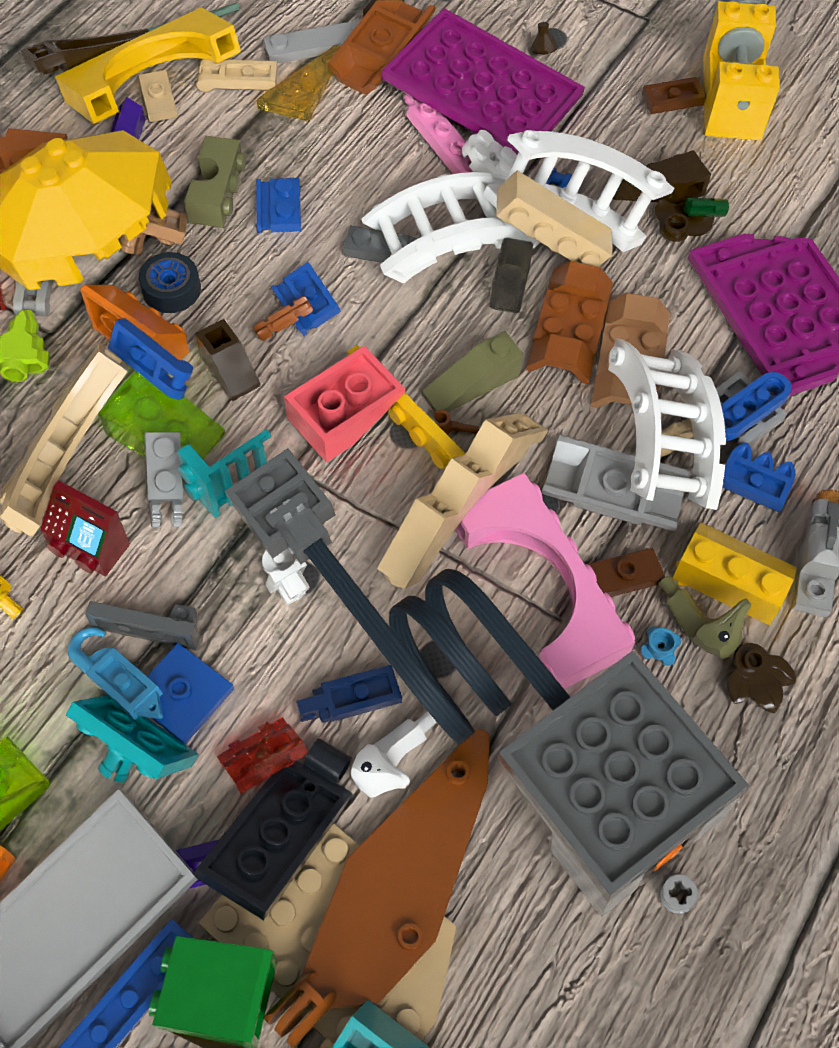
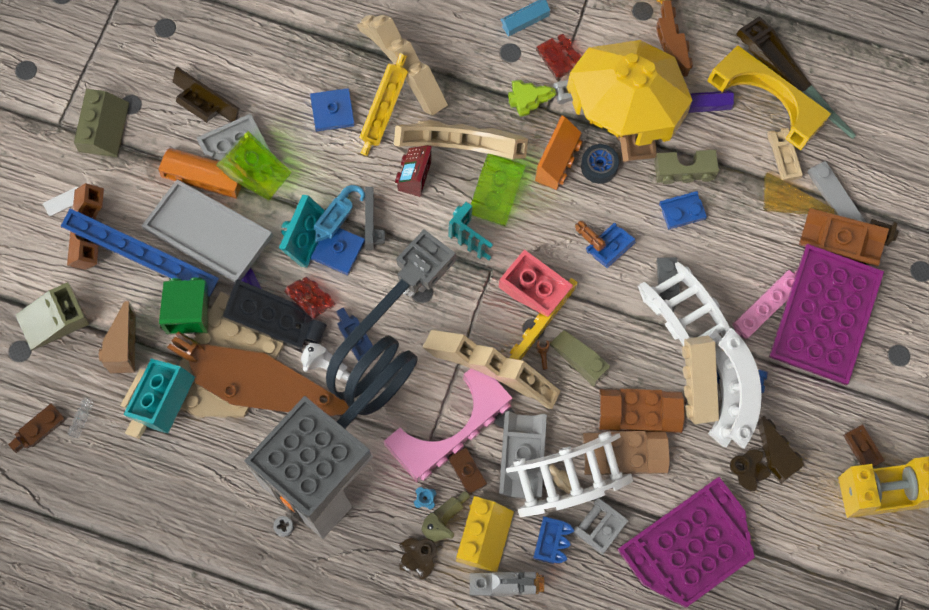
camera: 75 degrees right, 10 degrees up
(150, 359) = (524, 169): blue plate -> none
(158, 96) = (751, 110): tan plate -> none
(163, 476) = (473, 195): light grey hinge -> none
(227, 359) = (548, 212): dark brown slope -> none
(488, 154) = (767, 329): white plate -> none
(511, 275) = (662, 364): clear smoke brick -> none
(544, 41) = (885, 349): dark brown rock -> none
(706, 207) = (763, 483): dark green piece -> none
(758, 400) = (606, 530): blue plate -> none

